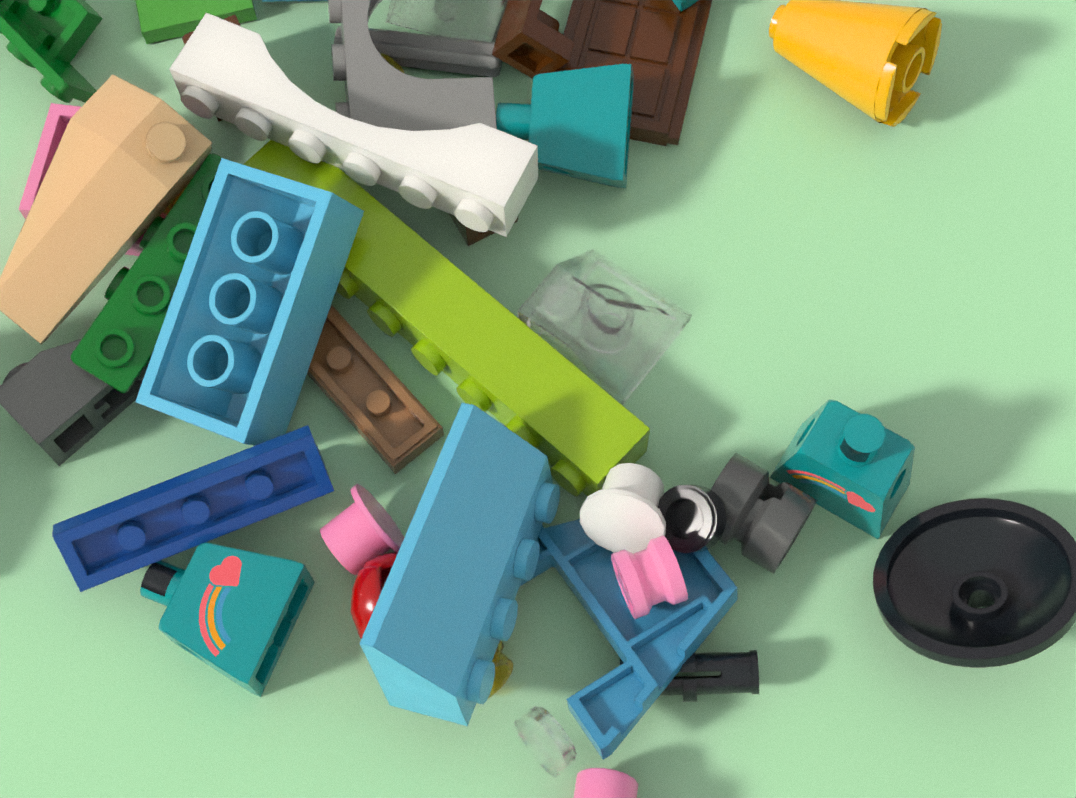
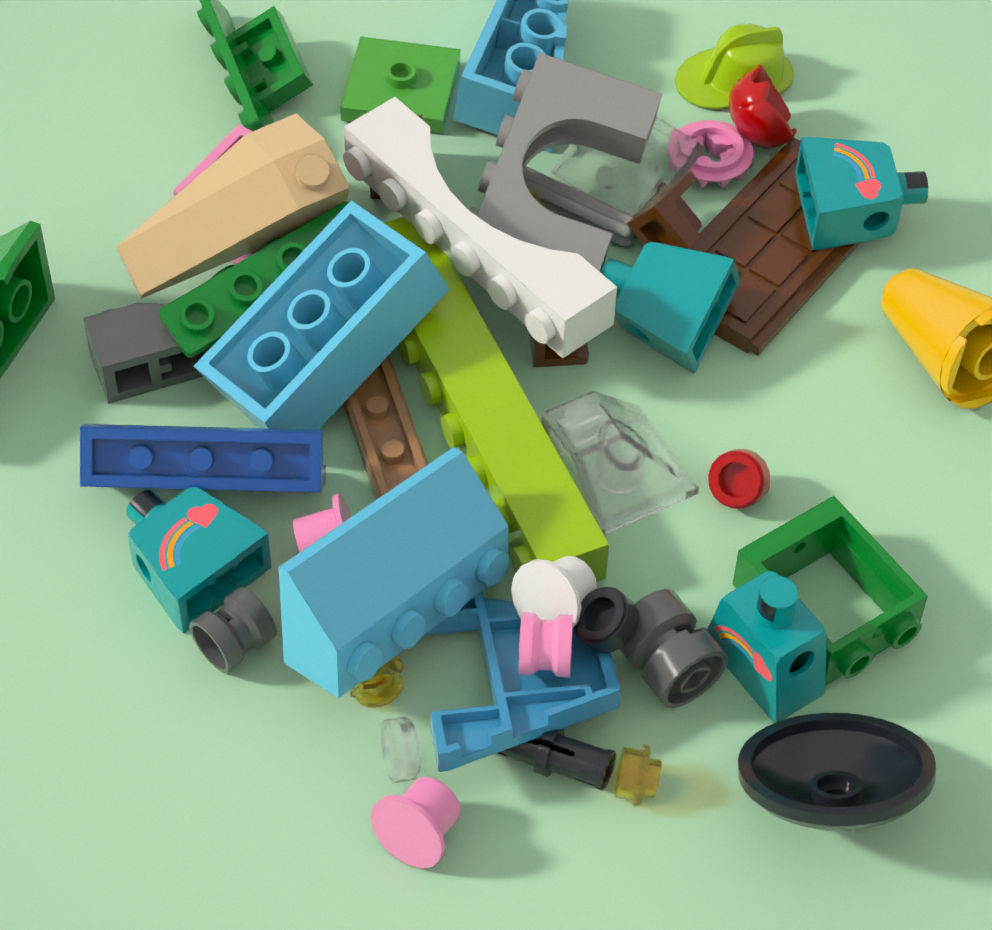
camera: 20 degrees right, 15 degrees down
(315, 680) = (233, 629): none -> dark grey wheel
(730, 293) = (739, 478): none -> red tile
(784, 662) = (637, 775): none -> clear yellow plate
(892, 336) = (836, 531): none -> green window

